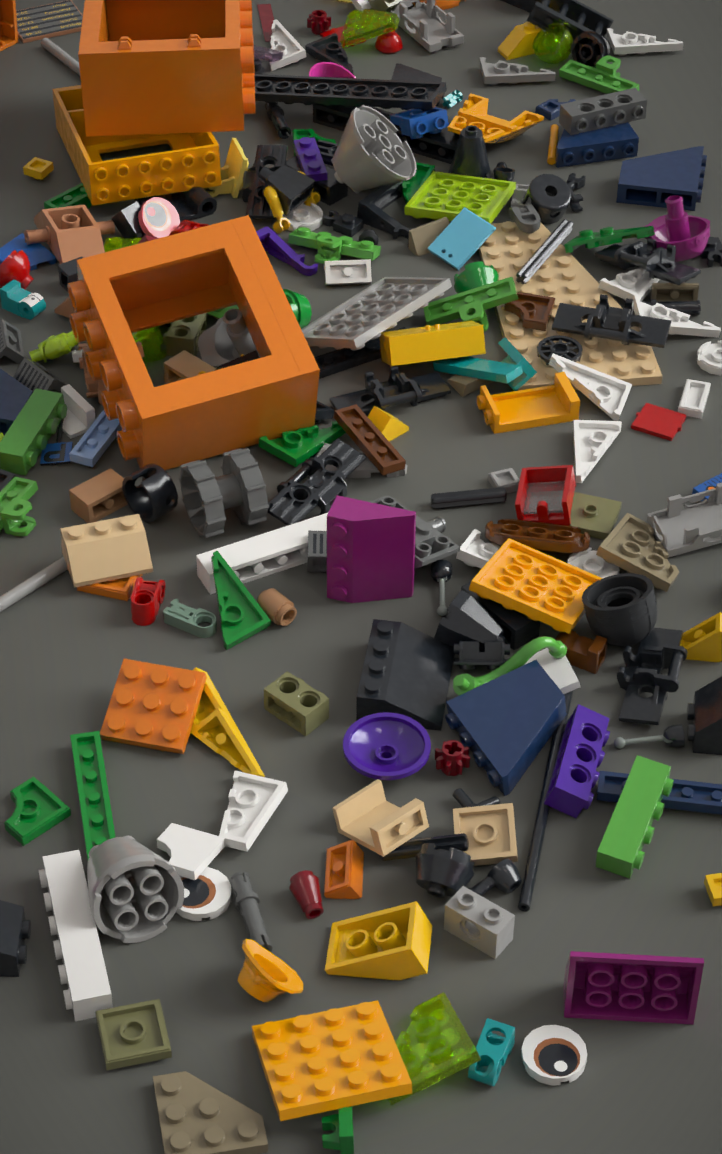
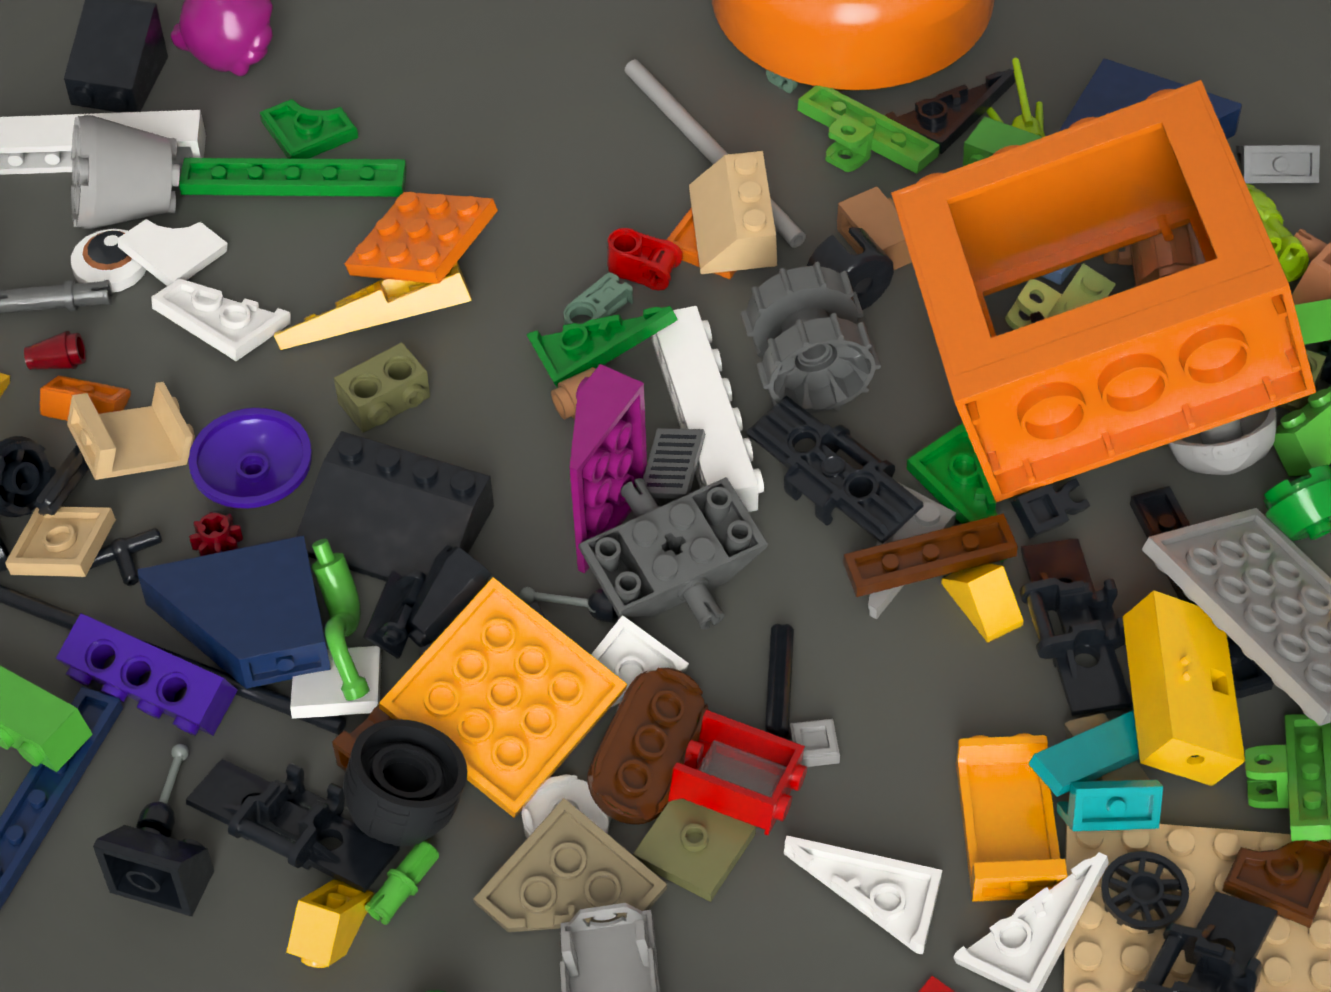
camera: 105 degrees right, 10 degrees up
(674, 621) = (402, 882): none -> bright green axle

